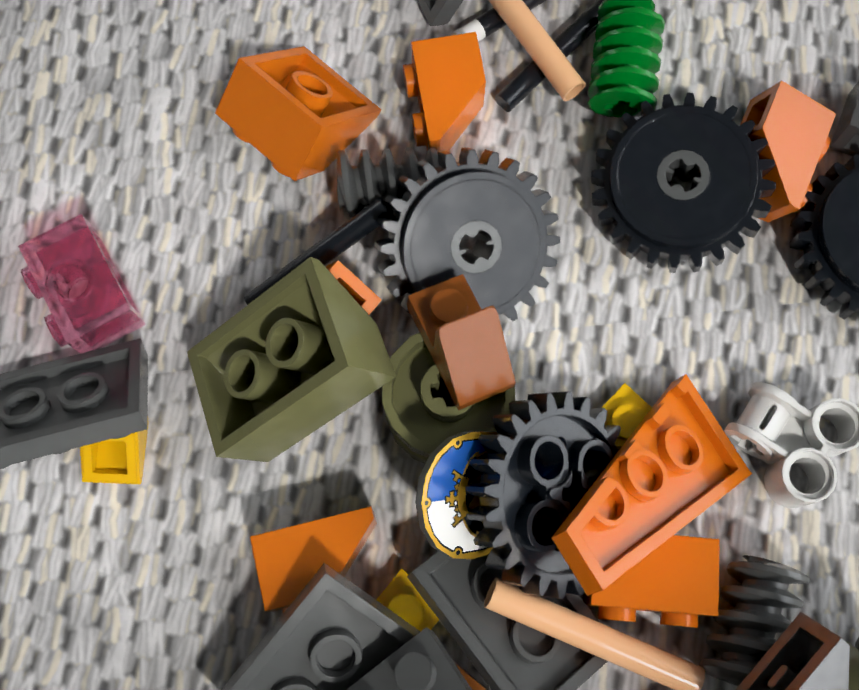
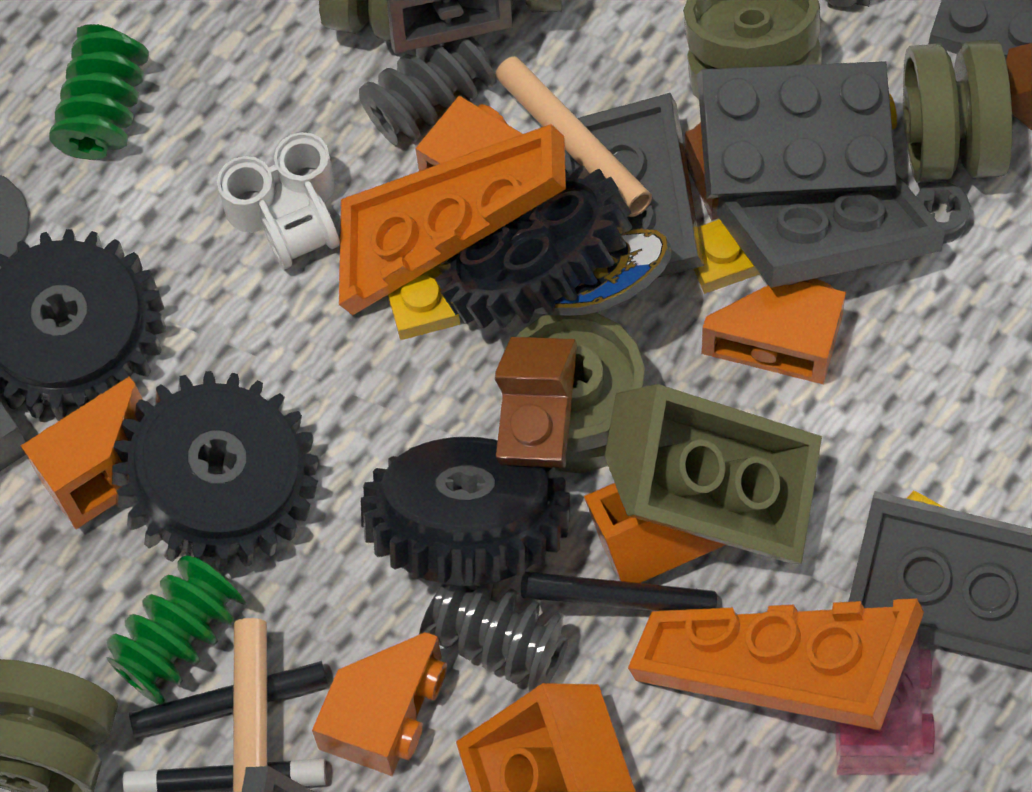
camera: 145 degrees left, 10 degrees down
(144, 262) = (800, 662): none -> orange wing

